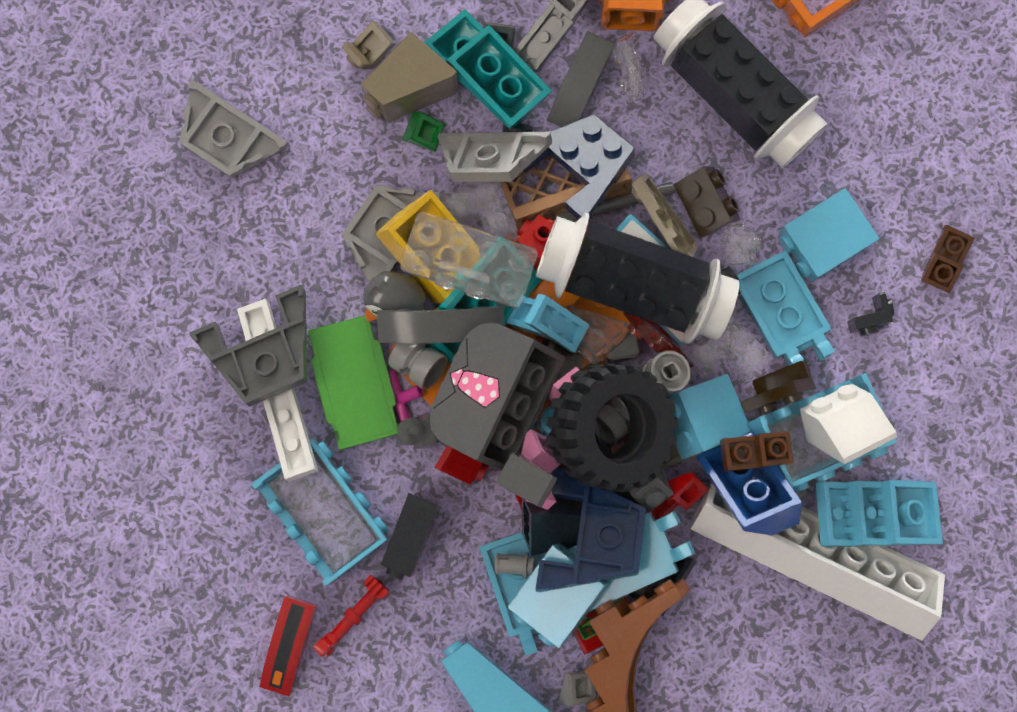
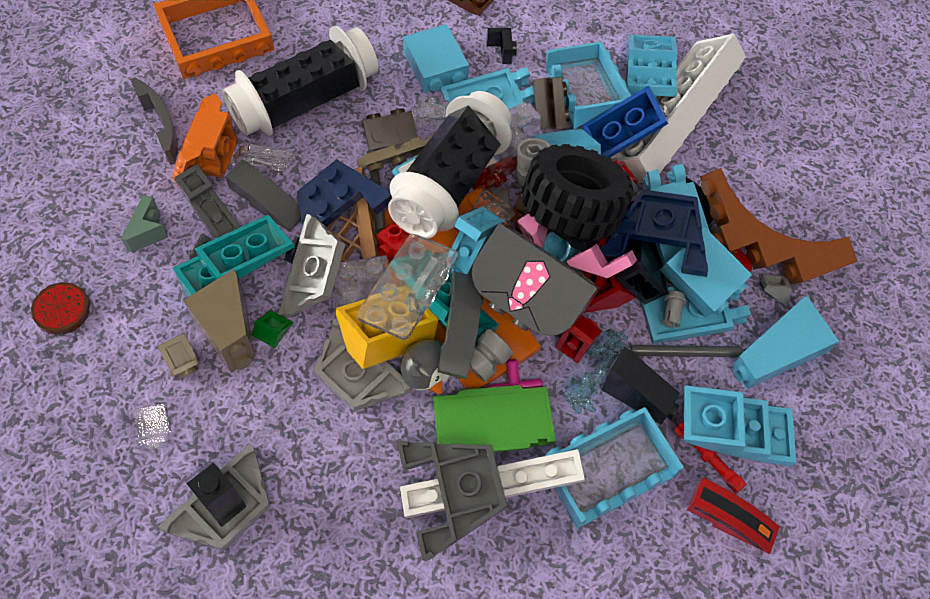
camera: 85 degrees left, 20 degrees down
(220, 117) = (215, 493): none -> black slope
(289, 44) = (153, 426): none -> clear bracket
(386, 645) = (738, 425): none -> medium azure slope
(397, 472) = (607, 351): none -> clear light blue piece
(417, 432) = (550, 359): dark grey hips -> none
(475, 586) = (686, 351): none -> dark grey bar
(526, 479) = (613, 260): dark grey slope -> none
(756, 451) = (603, 113): reddish brown slope -> none
(846, 423) = (588, 59): white slope -> none

